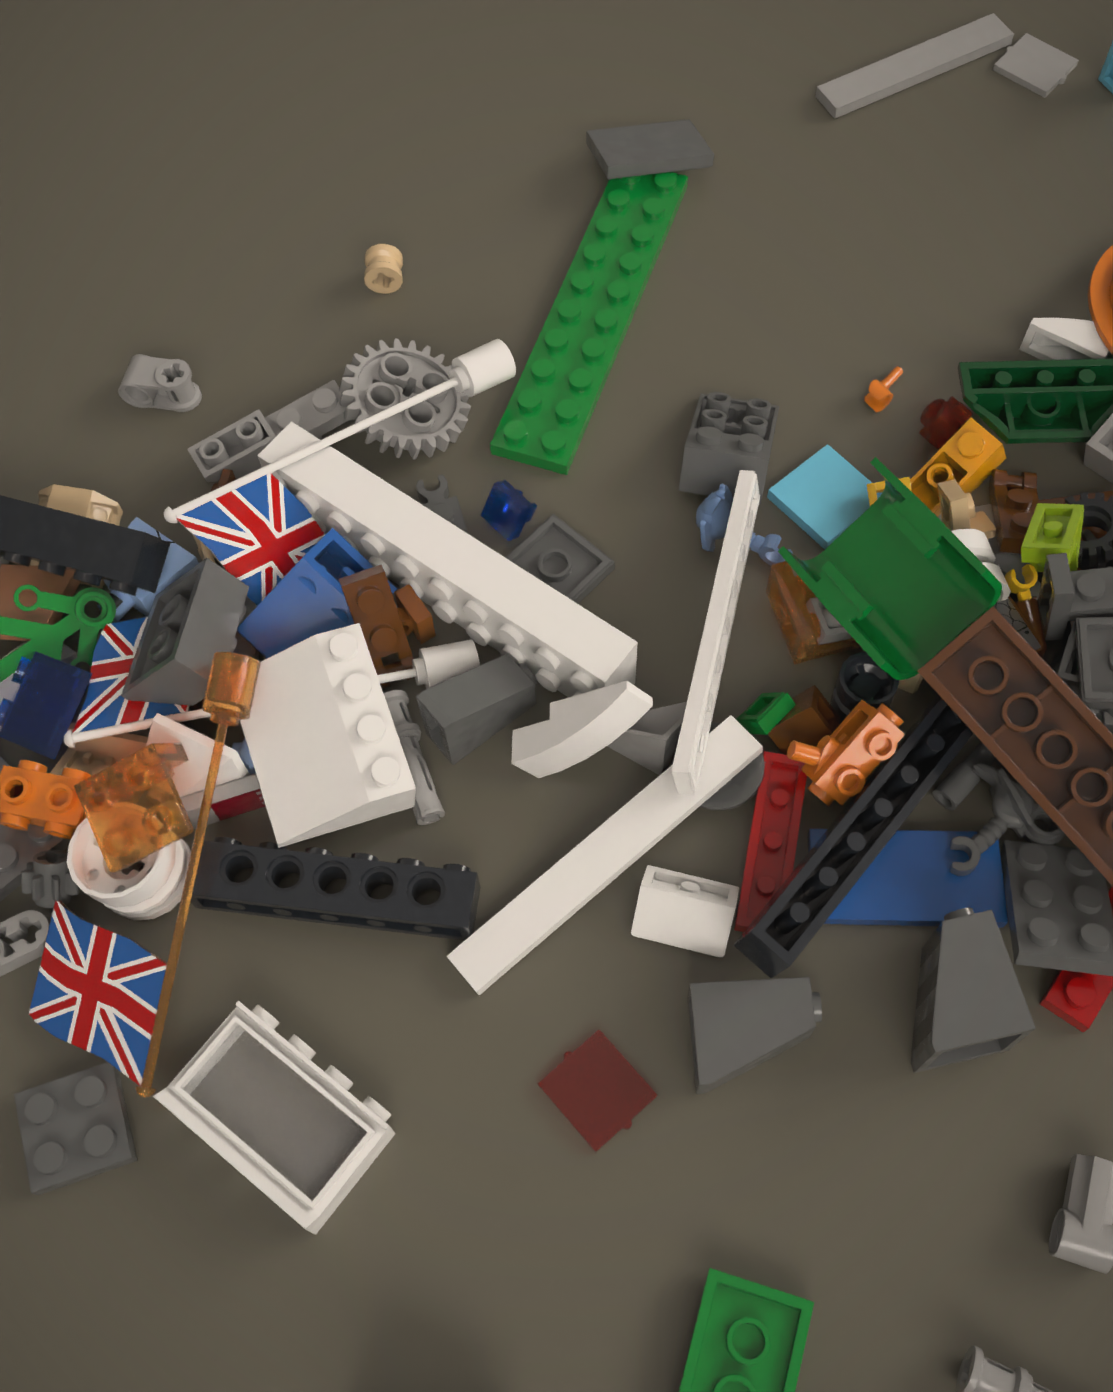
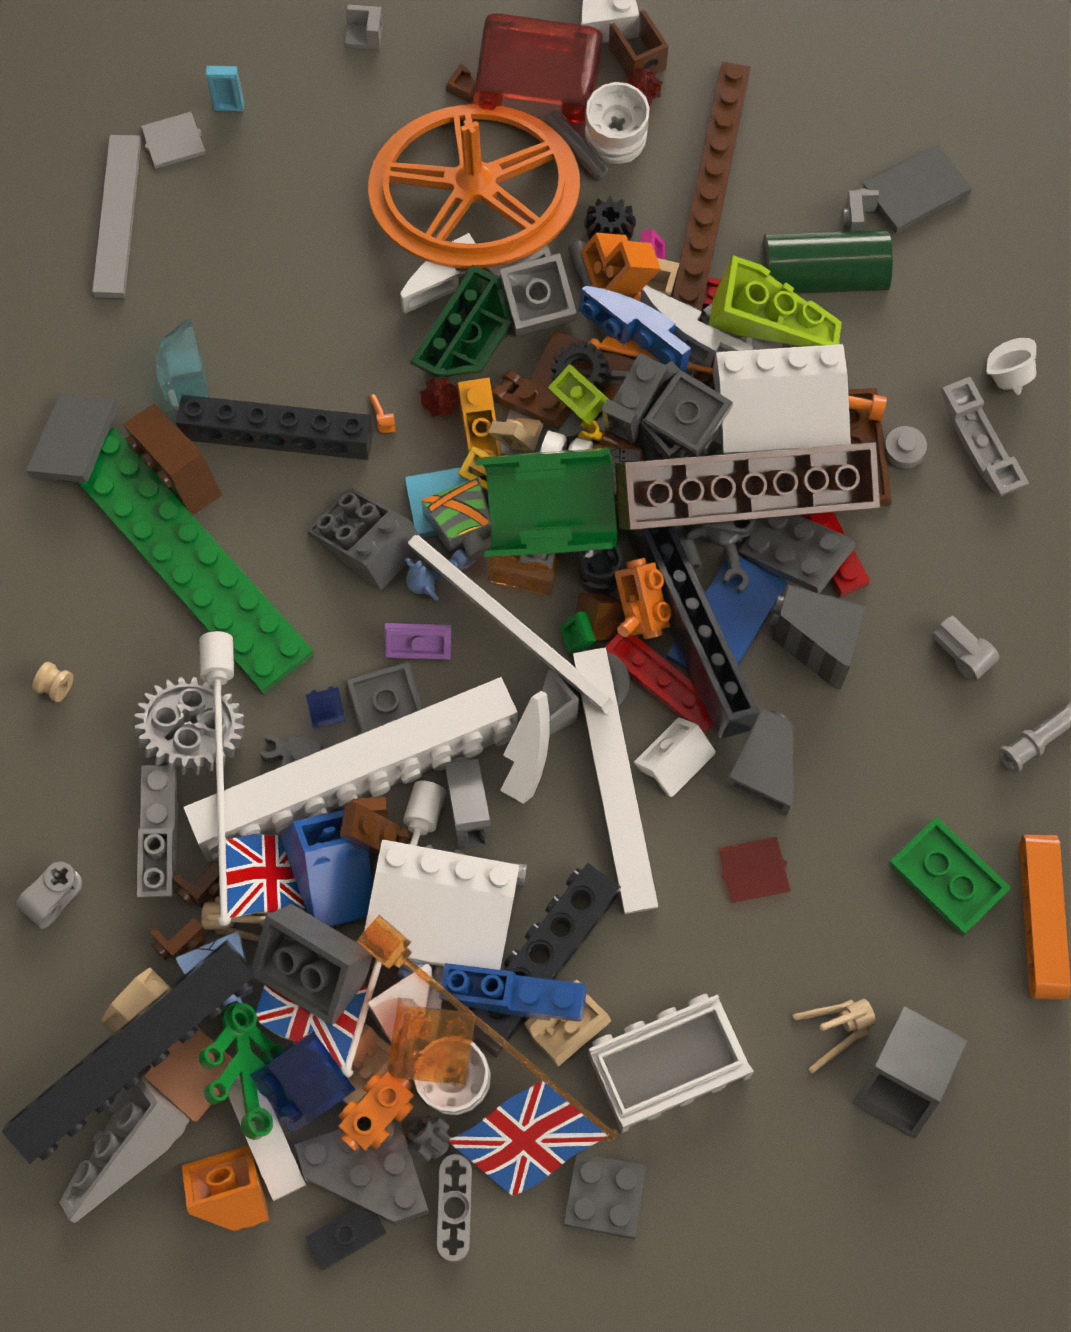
camera: 65 degrees left, 5 degrees up
(151, 511) = (184, 941): none -> reddish brown bracket
(255, 871) = (514, 994): none -> blue slope
(268, 961) = (563, 1038): none -> tan bracket
(462, 1336) = (853, 1016): none -> tan plant
(643, 557) = (417, 641): none -> medium lavender plate
(683, 234) = (172, 457): none -> reddish brown wedge
(791, 185) = (180, 365): none -> clear light blue slope
(793, 302) = (275, 427): none -> black brick
(815, 511) = (460, 518): none -> torso

